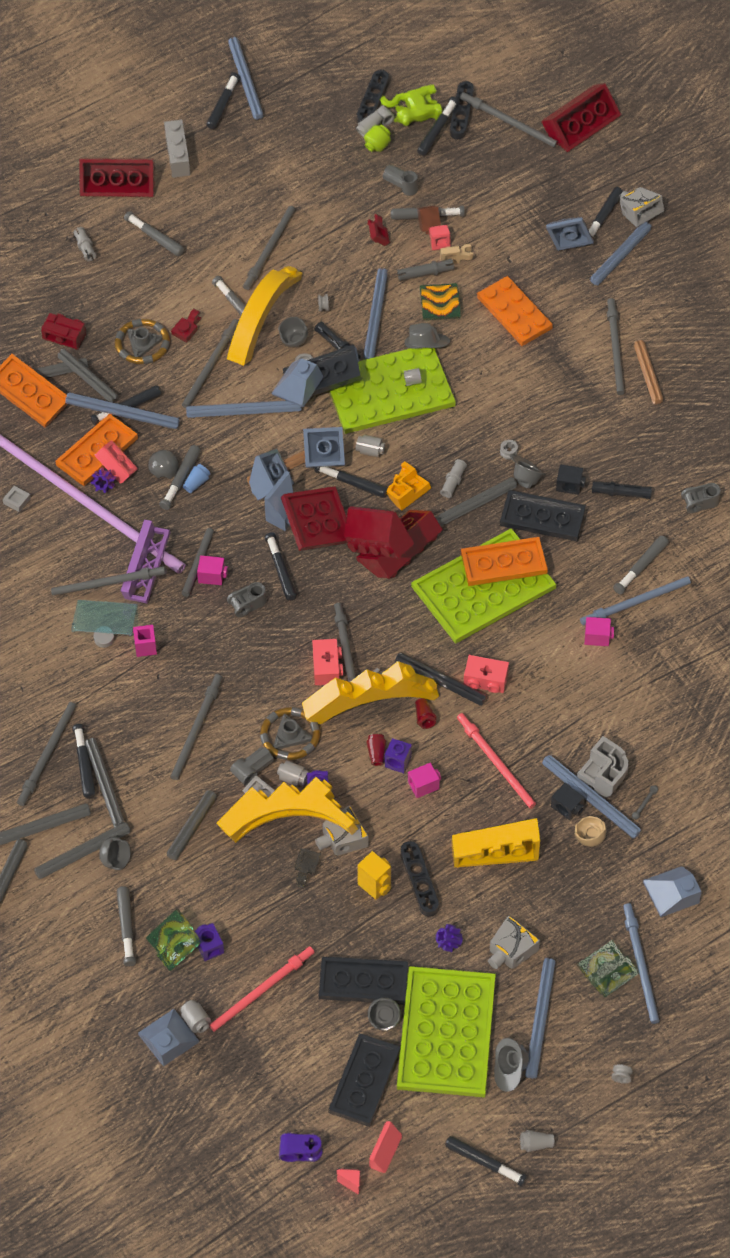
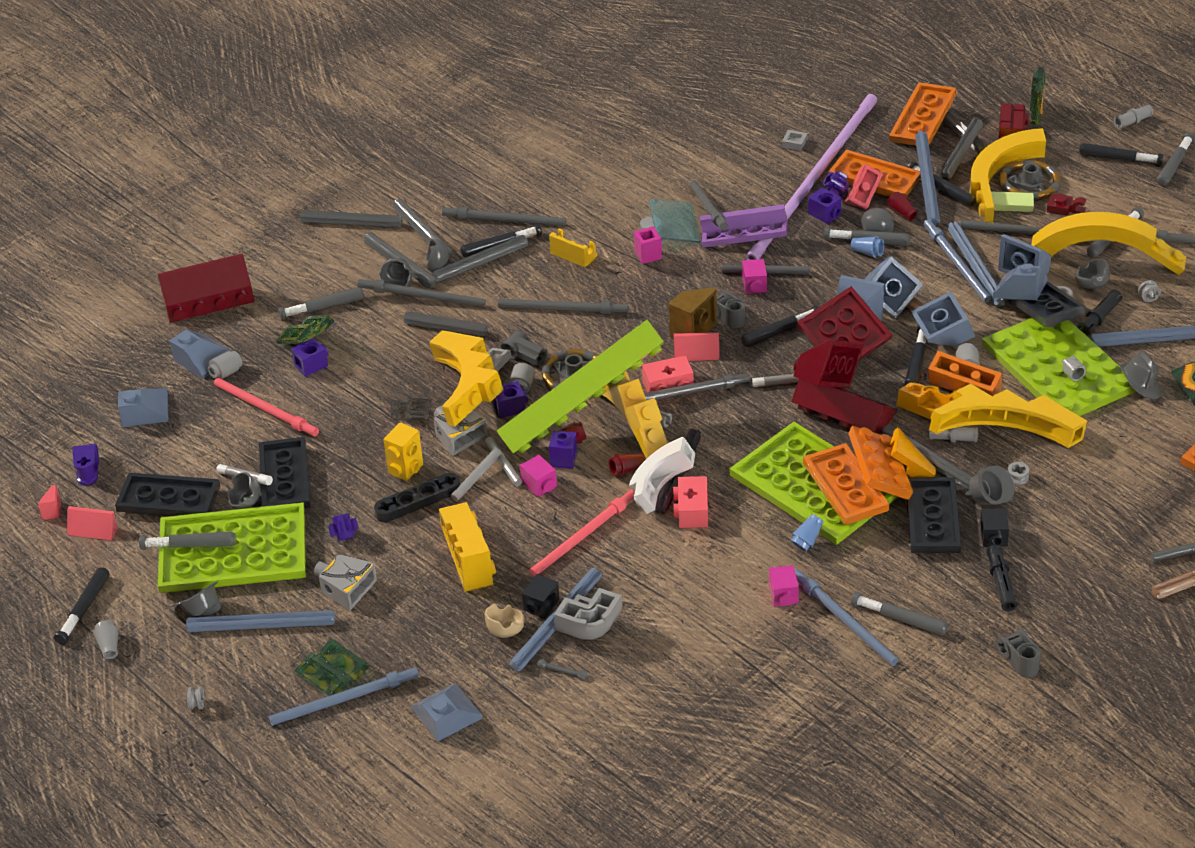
camera: 80 degrees right, 15 degrees down
(40, 298) = (1037, 96): none -> clear green slope
(86, 1020) = (206, 288): none -> dark red slope
(97, 815) = (437, 255): none -> dark grey hair
(120, 704) = (571, 250): none -> yellow hinge
(123, 369) = (998, 155): none -> yellow arch
(124, 498) = (824, 205): none -> dark purple brick
(124, 868) = (381, 286): none -> dark grey bar
(130, 271) = (1116, 153): none -> black piece
(149, 440) = (901, 205): none -> dark red cone
(168, 362) = (1013, 201): none -> yellowish green tile
(197, 426) = (938, 237): none -> sand blue bar
(227, 1095) = (143, 406): none -> sand blue slope
(263, 625) = (693, 311): none -> pearl gold slope
(264, 372) = (1015, 253): none -> sand blue slope
(291, 634) = (697, 346): none -> coral slope
(348, 578) = (774, 380): none -> light grey bar
(357, 717) = (581, 386): none -> lime brick
(358, 1011) = (232, 471): none -> bar
(391, 806) = (504, 462): none -> light grey bar
(398, 451) = (957, 373): none -> orange brick
(405, 827) = (476, 474): none -> light grey bar
(441, 1052) = (212, 539): none -> dark grey piece
(443, 434) = (1007, 409): none -> yellow arch
(445, 686) = (658, 470): none -> white arch
(484, 532) = (877, 464): none -> orange plate
(486, 510) = (909, 455): none -> light orange slope
(546, 601) = (807, 533): none -> medium blue cone

